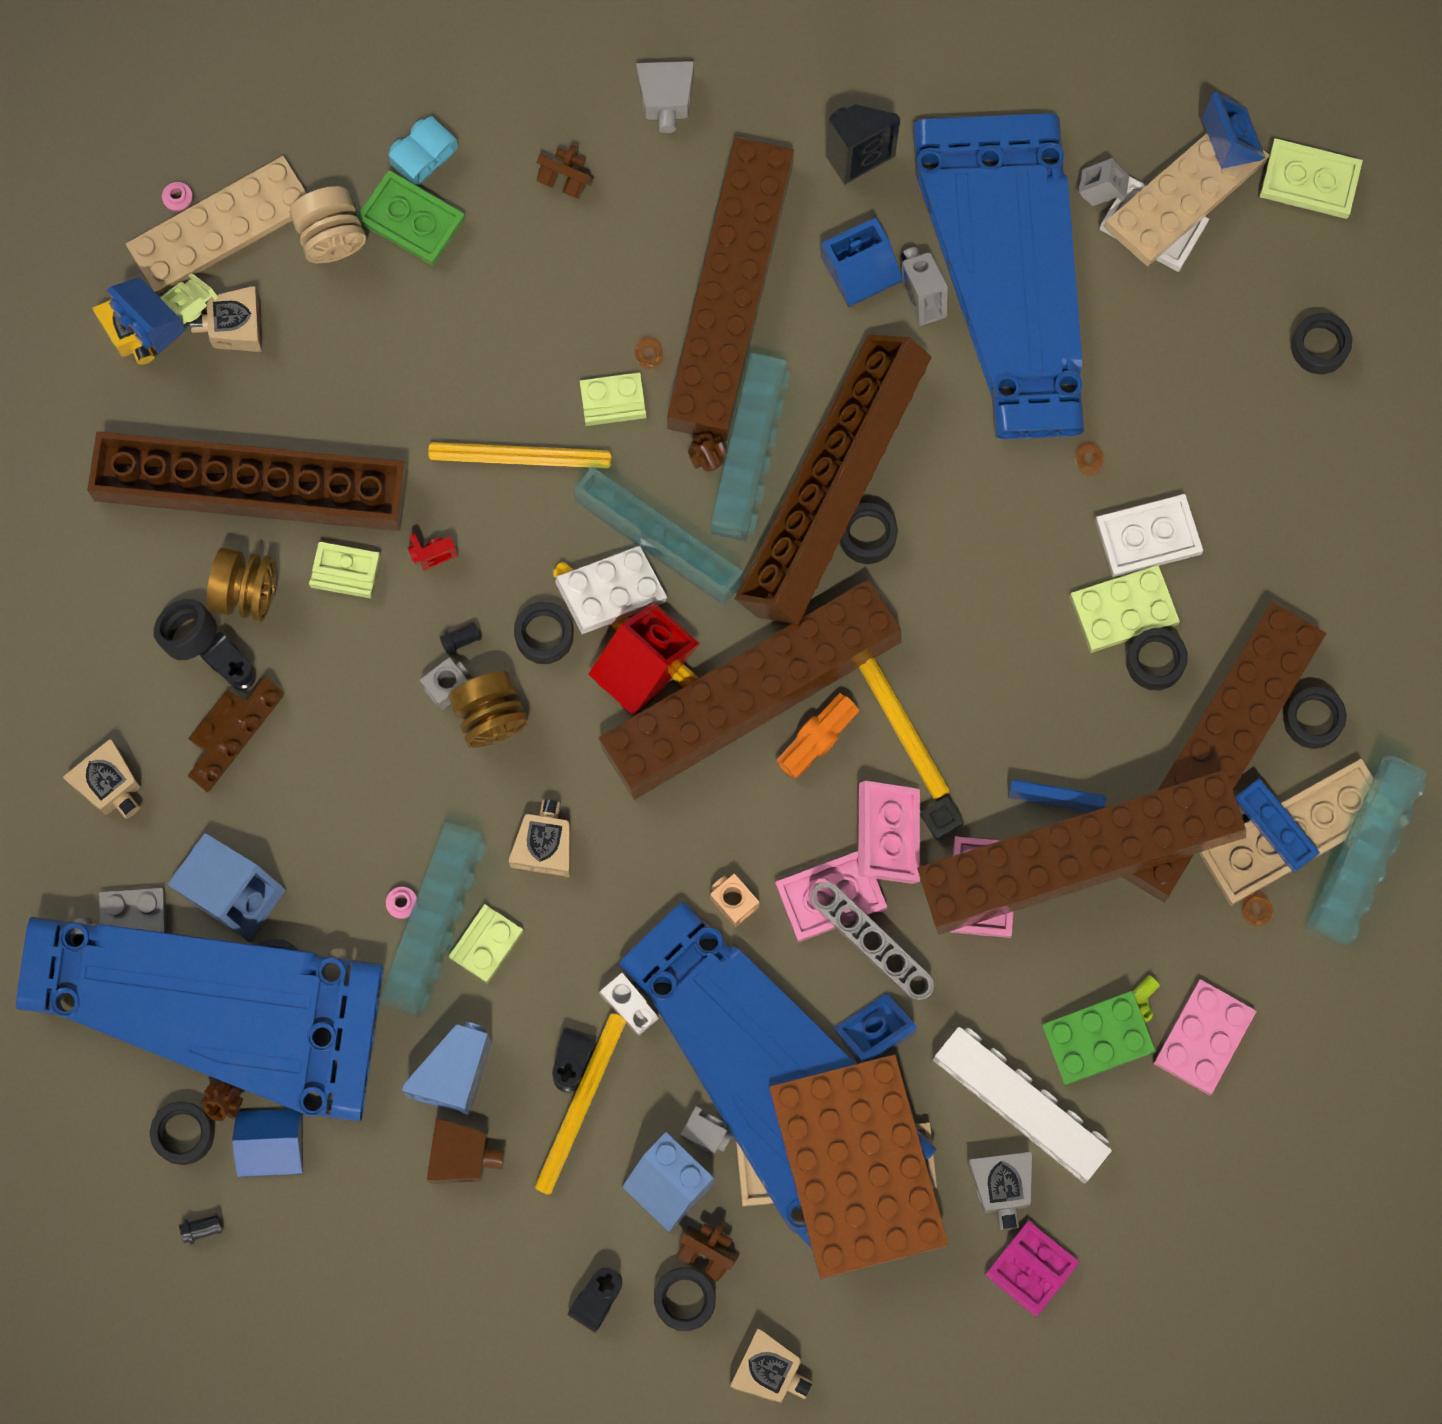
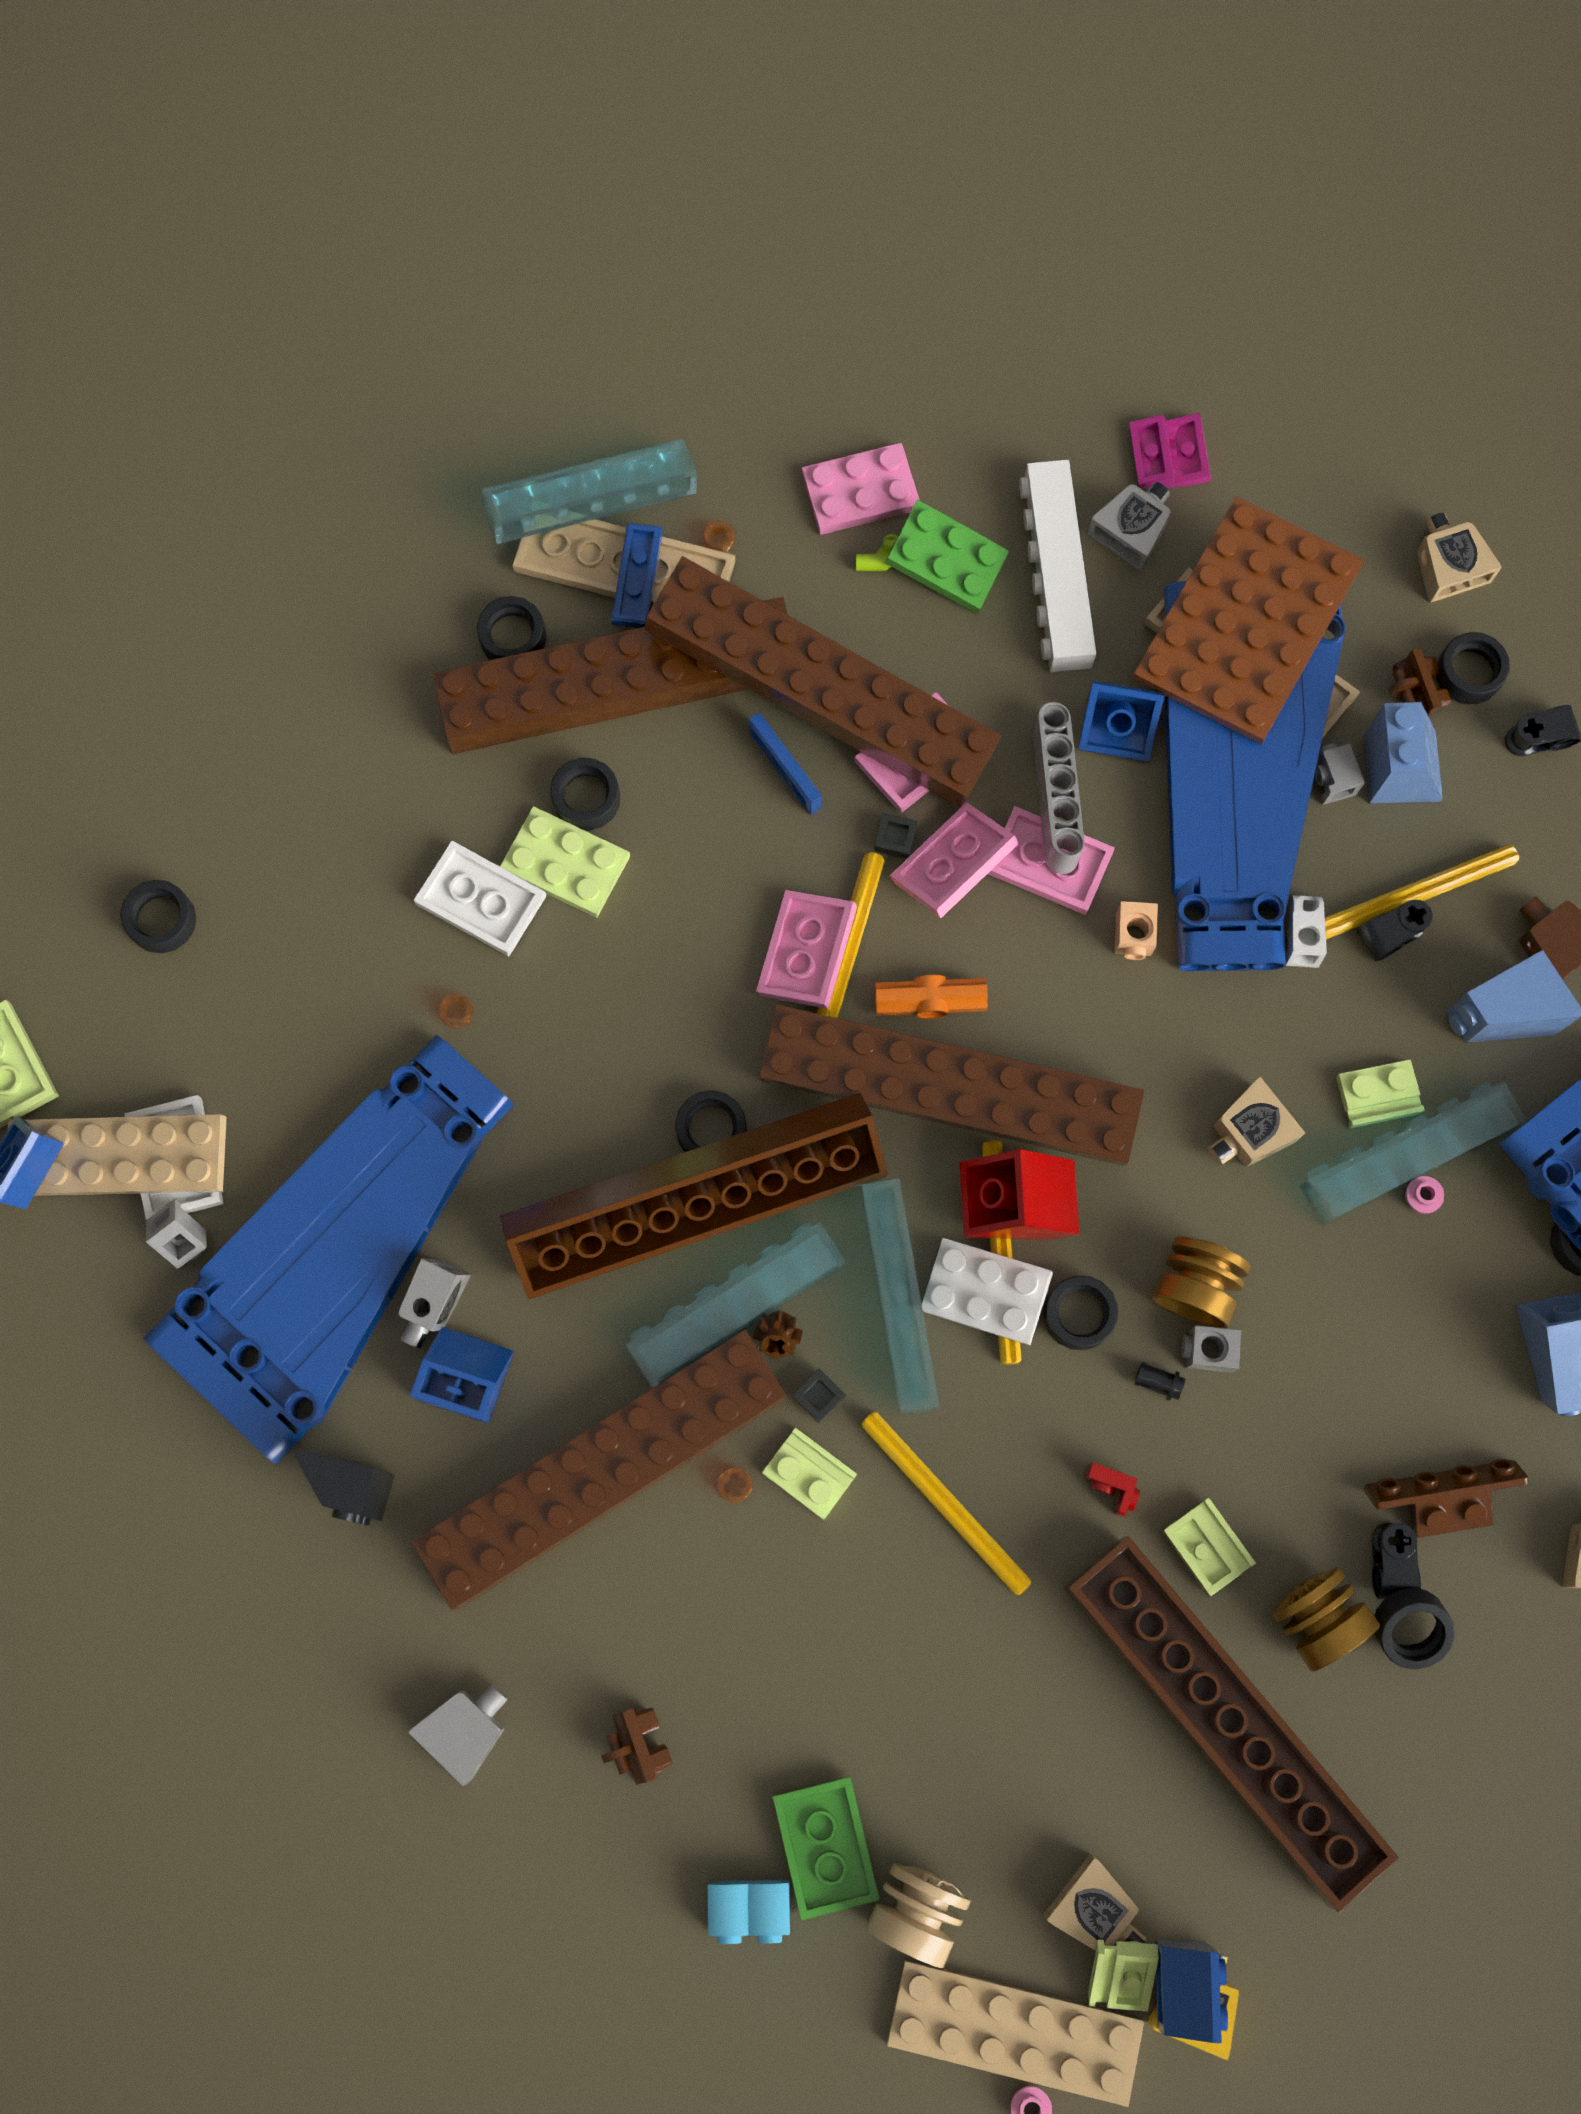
camera: 135 degrees left, 0 degrees up
(649, 443) = (818, 1396): none -> pearl dark grey plate
(921, 691) = (806, 949): none -> bright pink plate

